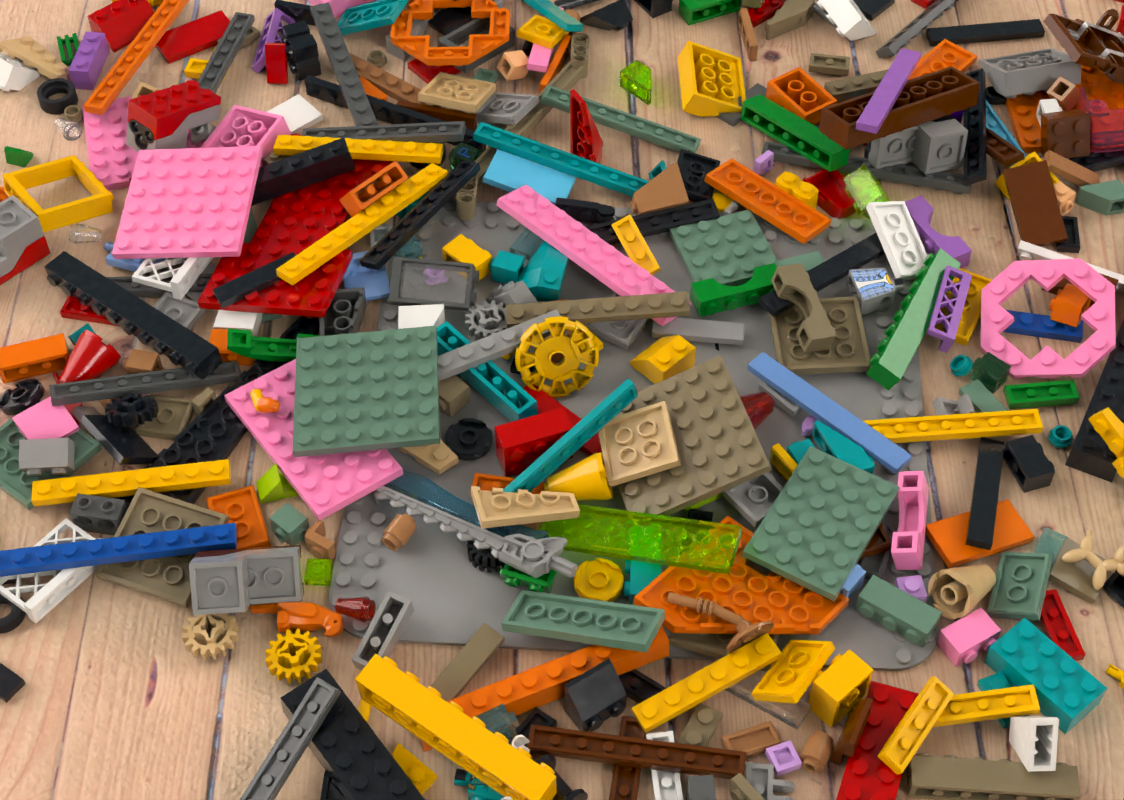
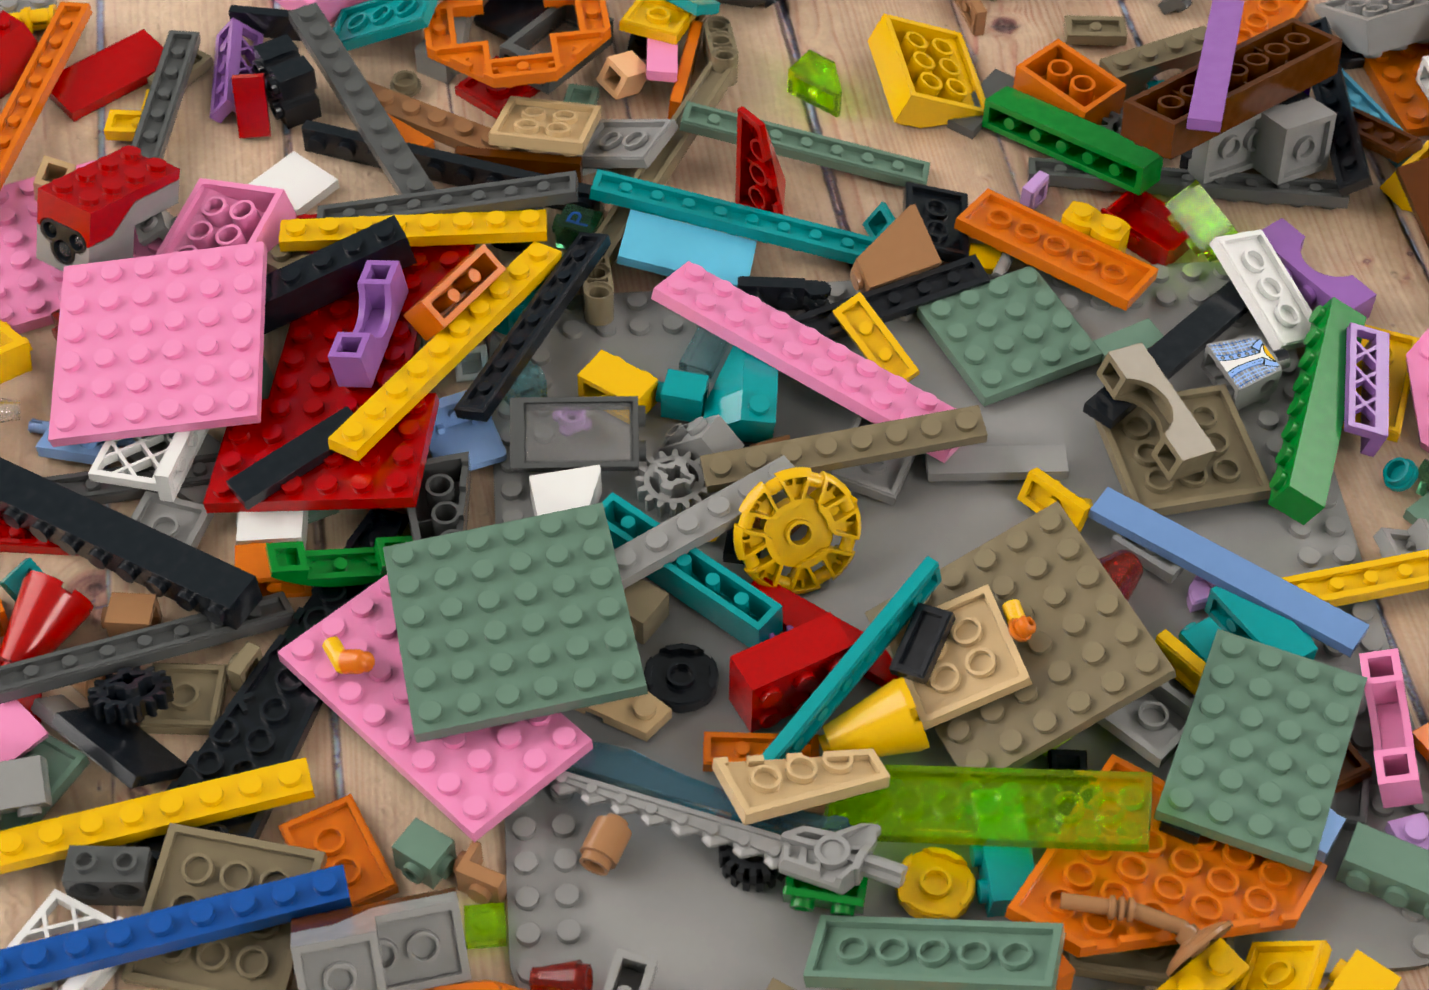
camera: 10 degrees left, 0 degrees up
(274, 486) = (385, 792): lime slope -> none
(327, 189) = (358, 354): none -> medium lavender arch
(617, 432) = (922, 643): none -> black tile
(665, 358) = (958, 514): yellow slope -> none
(679, 427) = (1019, 625): none -> orange arm
(712, 297) = (1013, 408): green arch -> none
(733, 359) = (1042, 490): none -> yellow tile

